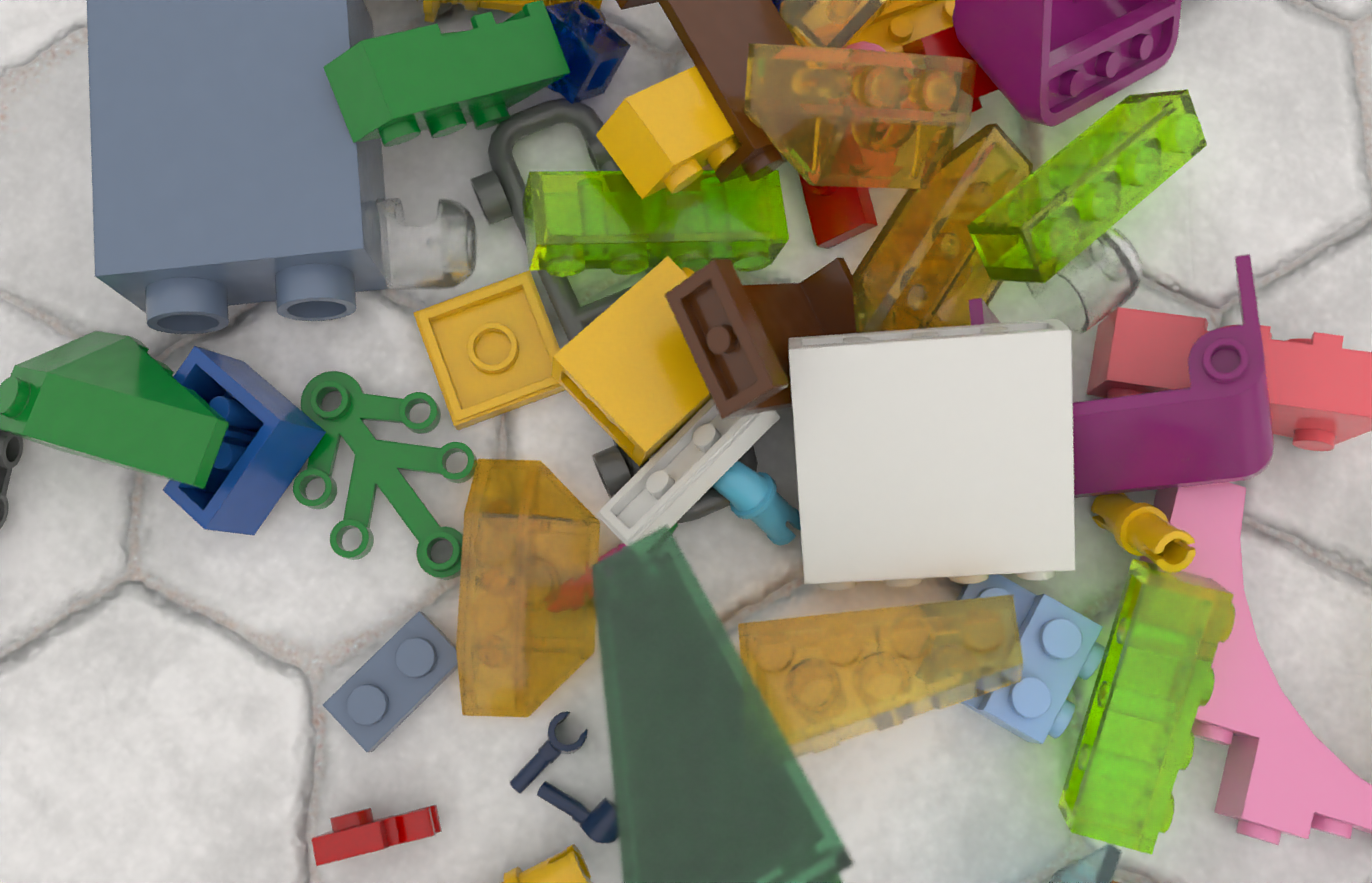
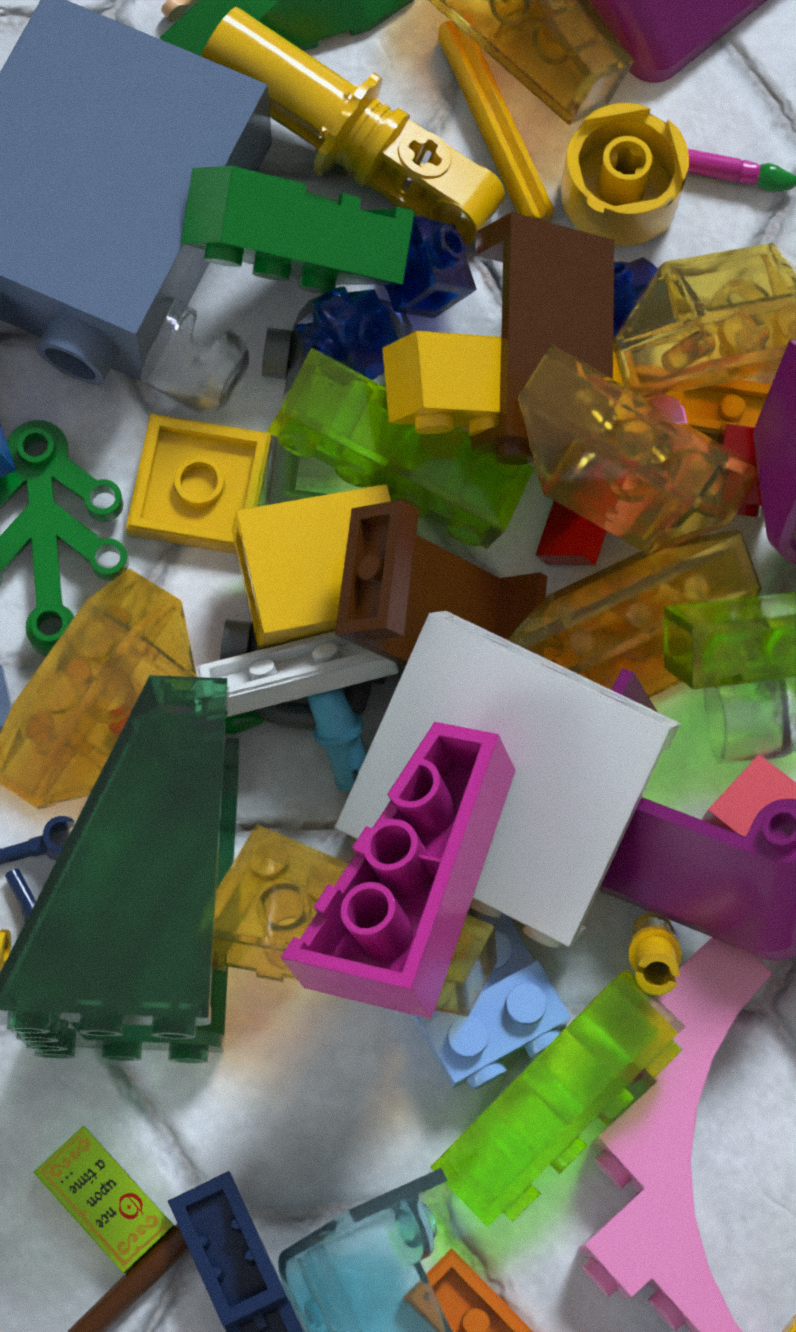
camera: 30 degrees right, 5 degrees down
(549, 138) = (349, 329): none -> clear blue brick
(932, 622) = (408, 889): none -> dark pink wedge

